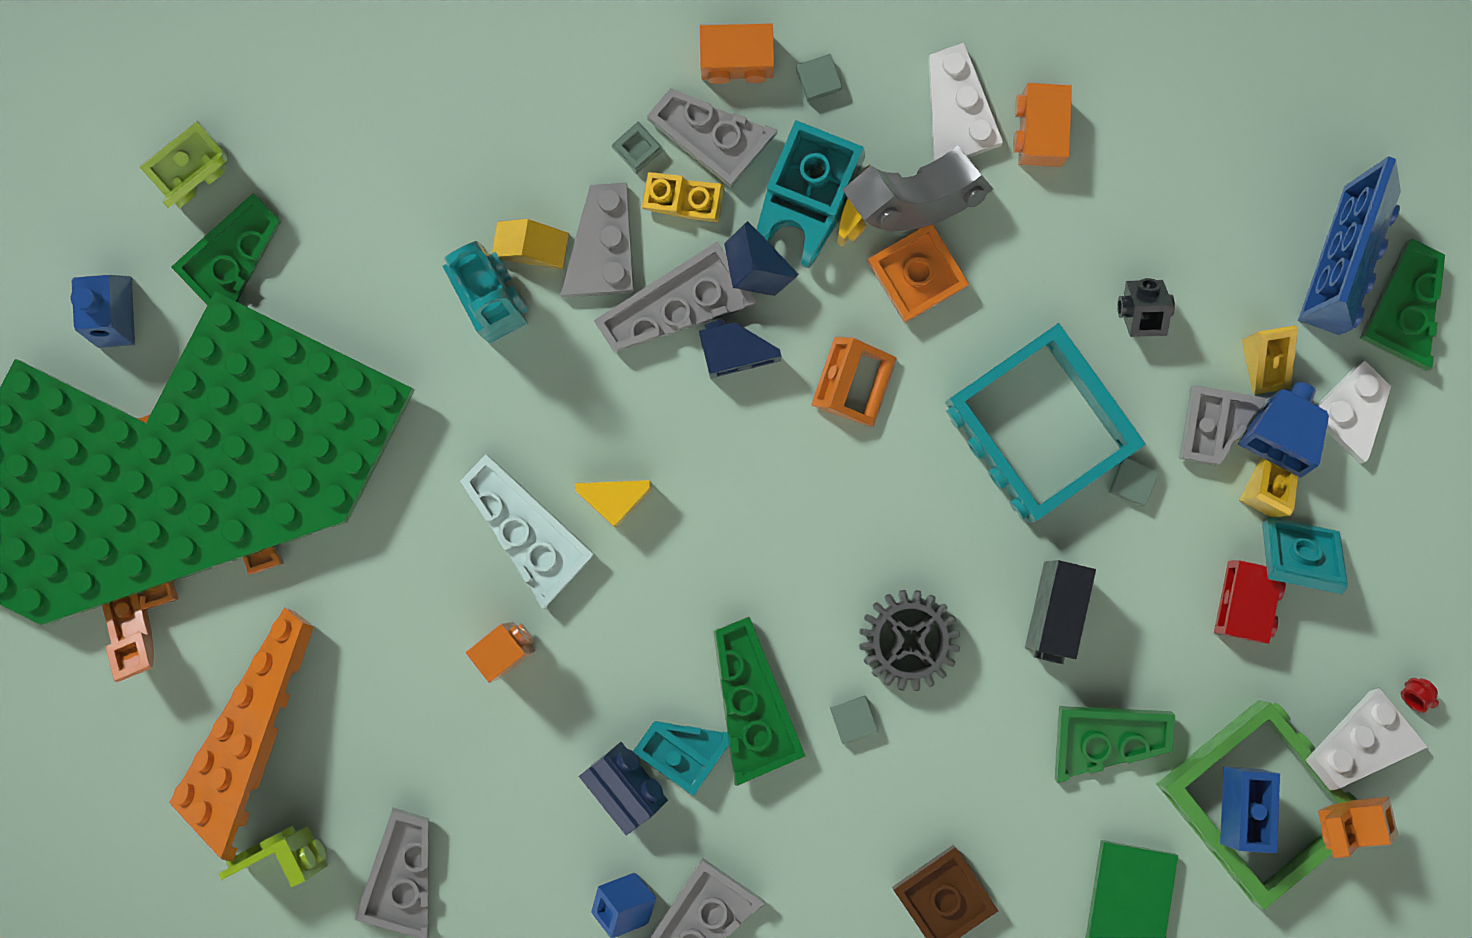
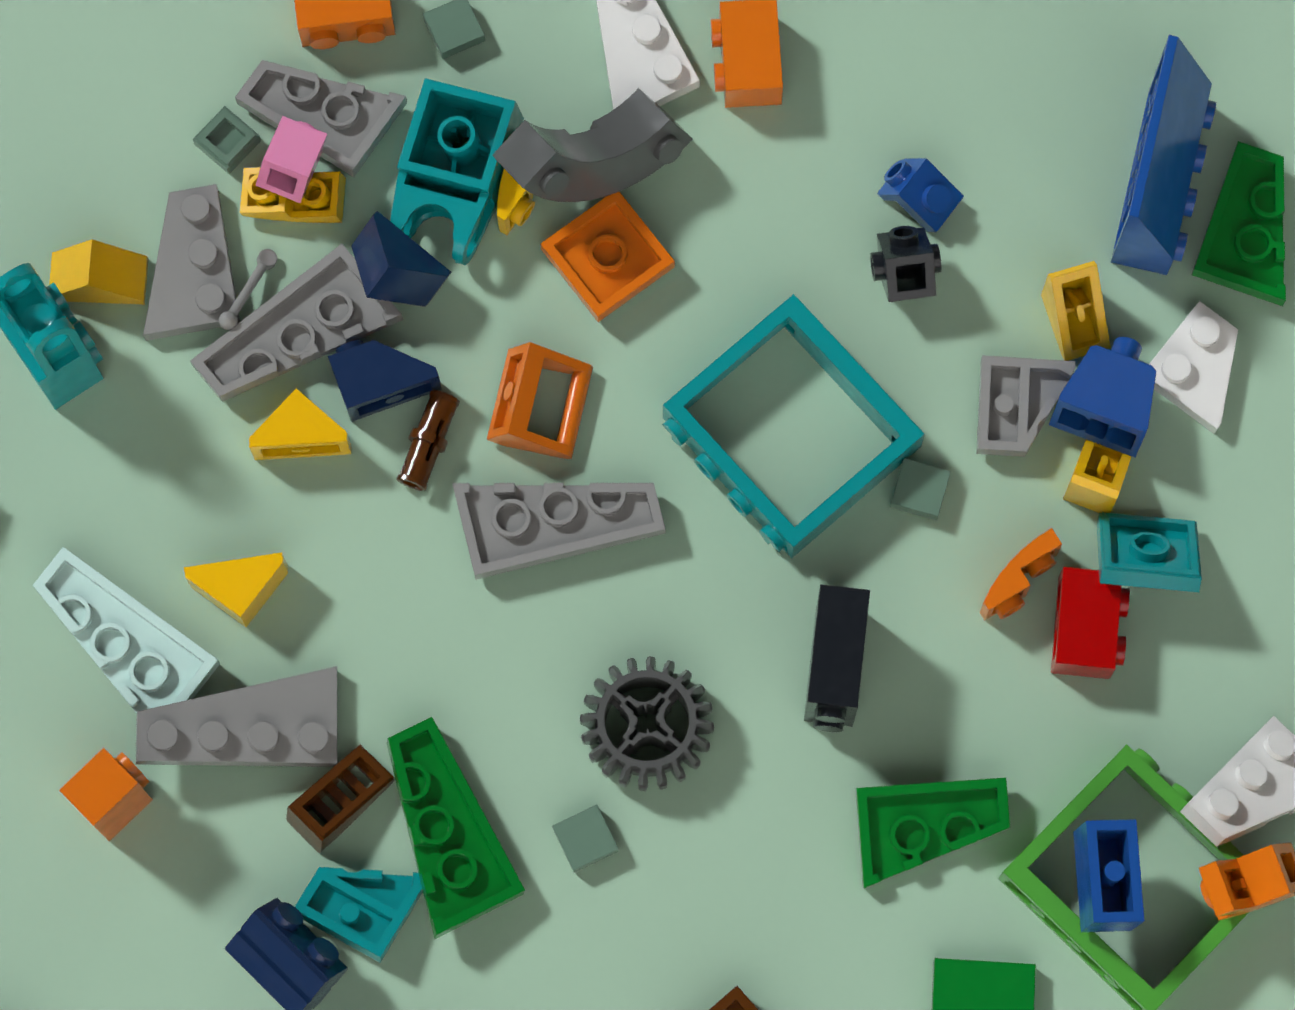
camera: 10 degrees left, 10 degrees down
(618, 607) = (254, 725): none -> light grey wing
(648, 686) = (309, 828): none -> reddish brown slope
(657, 246) = (266, 260): none -> light grey hinge
(670, 384) = (298, 431): none -> yellow slope
(686, 172) = (291, 159): none -> bright pink brick
(767, 401) = (428, 440): none -> reddish brown pin
(843, 476) = (537, 524): none -> light grey wing
(1161, 249) = (921, 192): none -> blue bracket
(1195, 564) = (1012, 585): none -> orange slope

